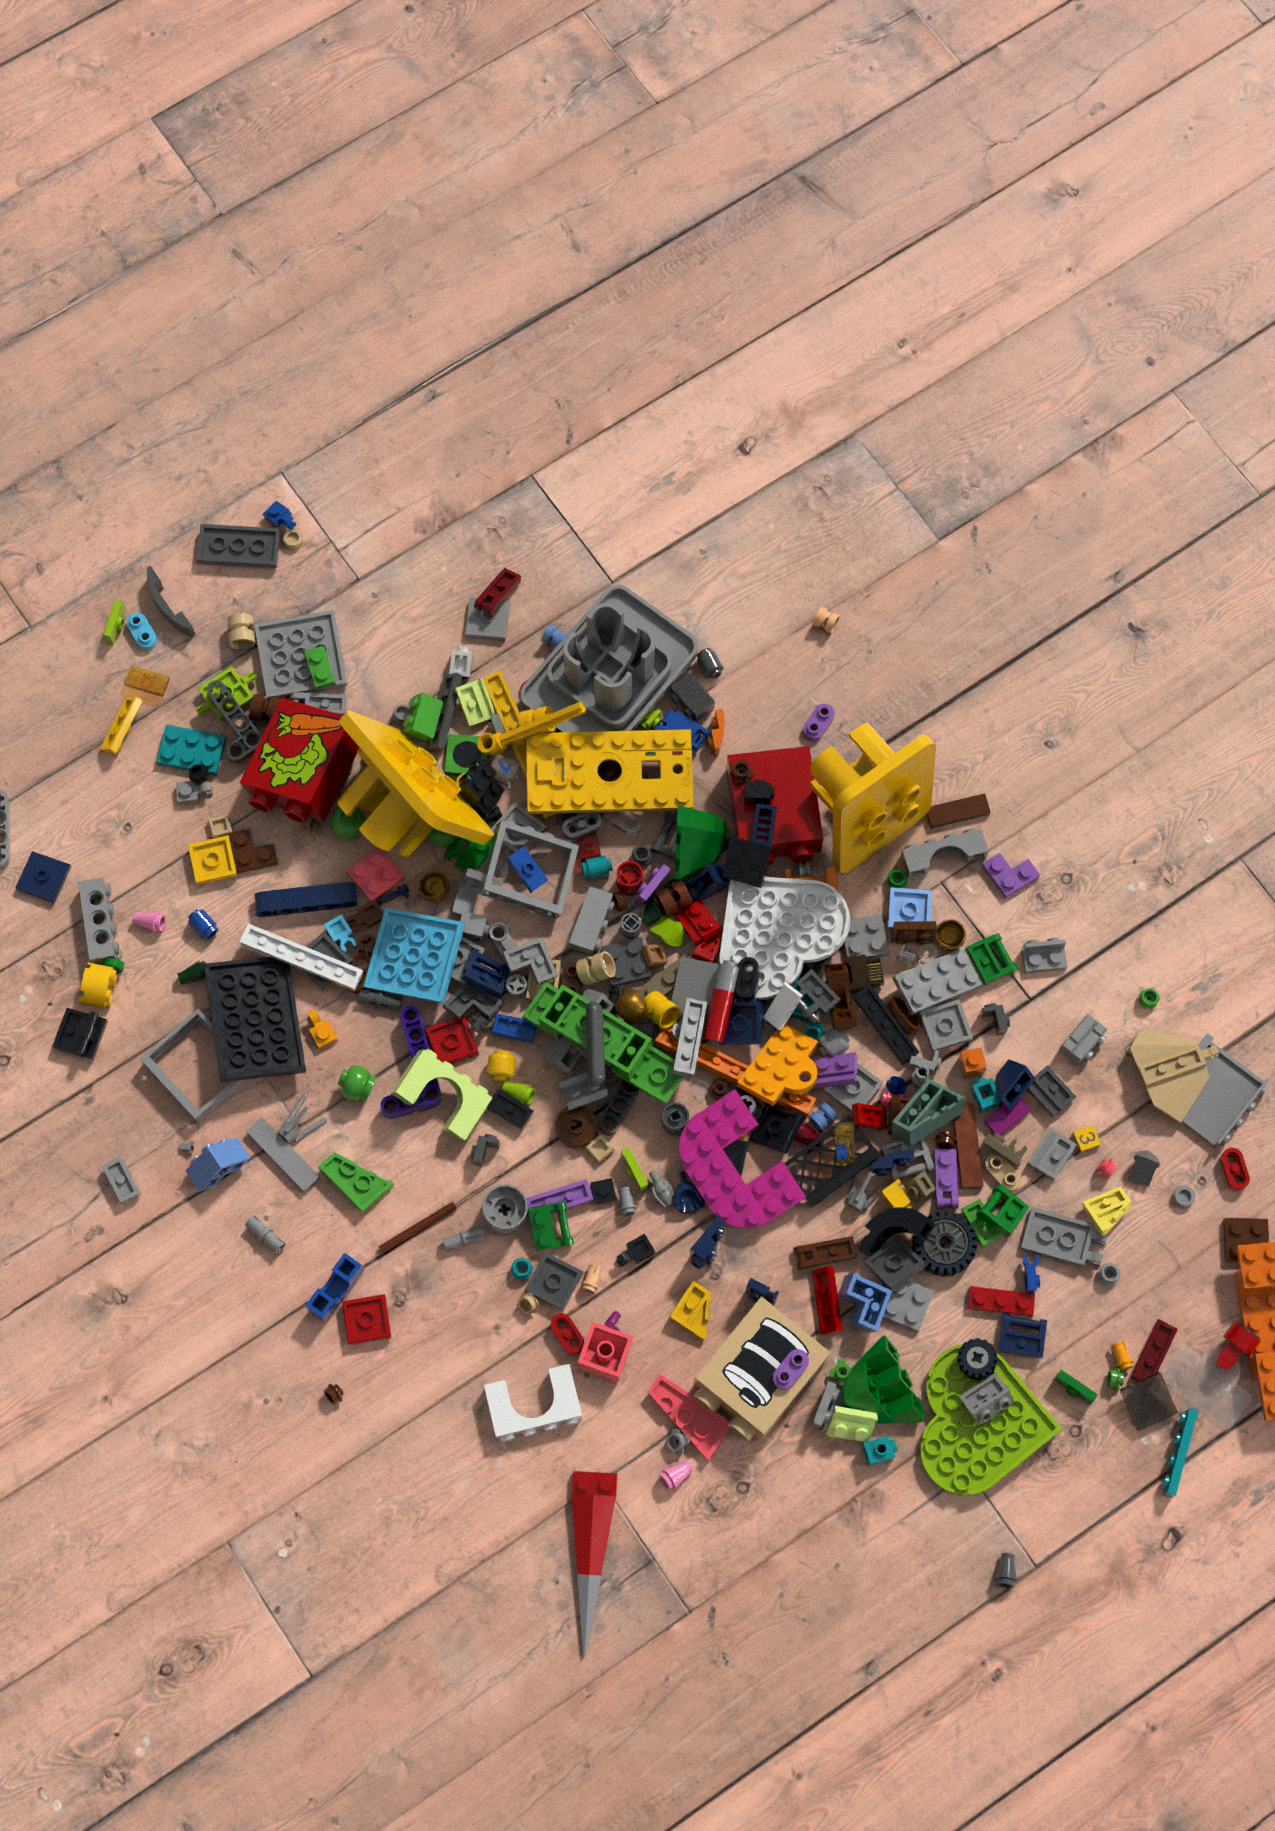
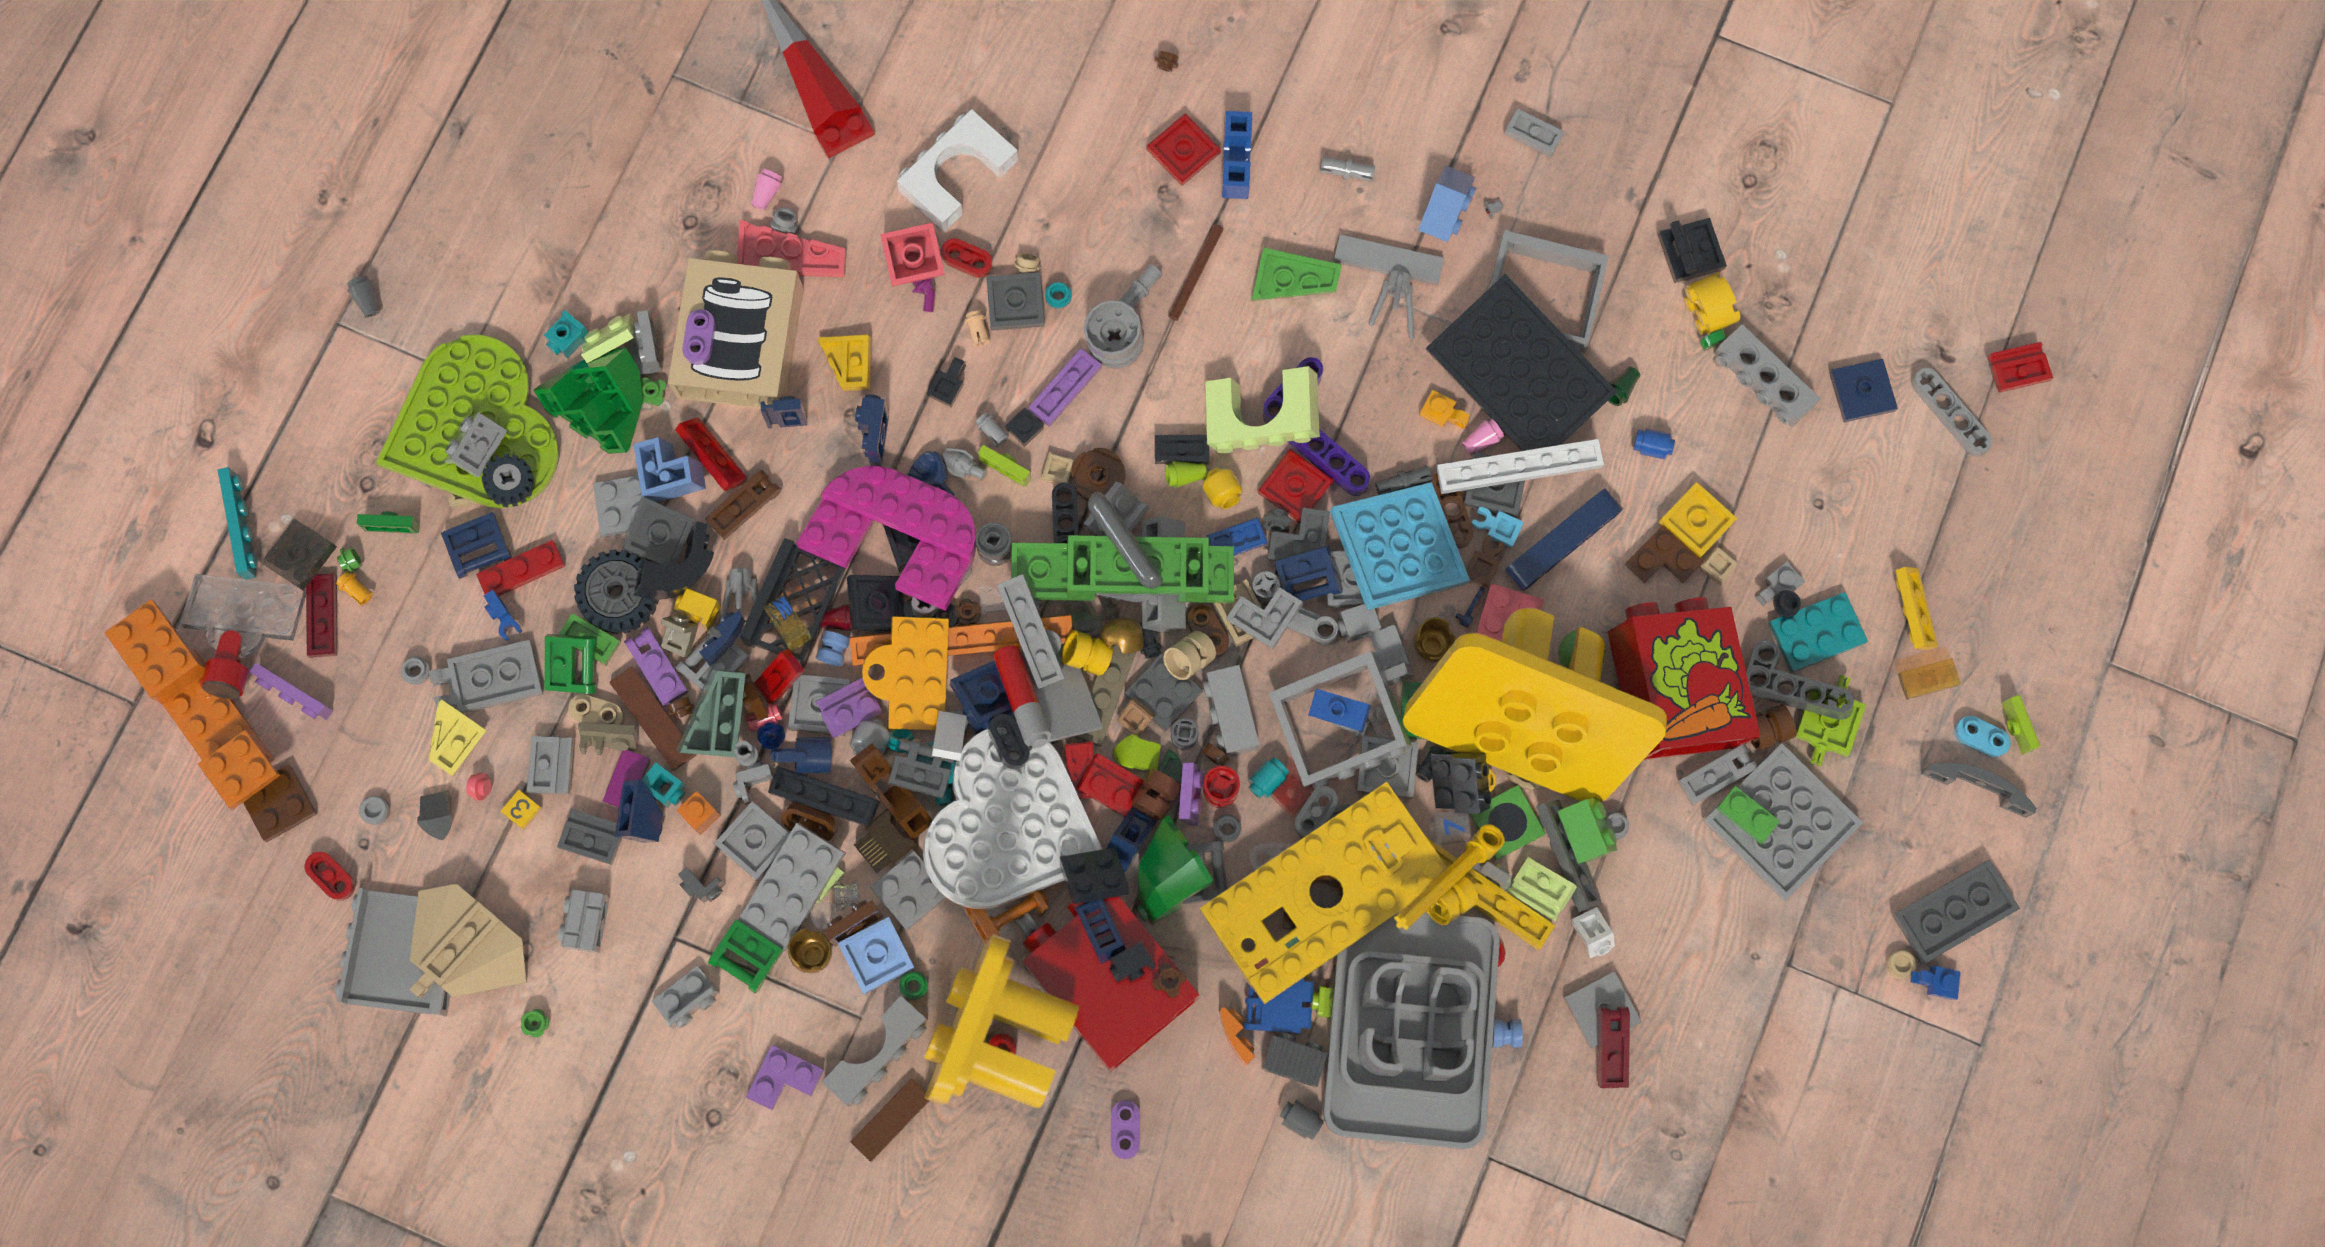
camera: 145 degrees right, 5 degrees up
(151, 920) = (1712, 412): bright pink cone -> none
(241, 630) = (1870, 803): tan wheel -> none
(307, 995) = (1483, 436): none -> bright pink cone
(356, 1083) = (1363, 371): bright green piece -> none
(478, 1152) = (1184, 385): dark grey bracket -> none
(543, 1228) = (1062, 346): green plate -> none
(879, 1055) = (809, 755): none -> dark blue piece
(1201, 1308) = (290, 693): none -> medium lavender plate

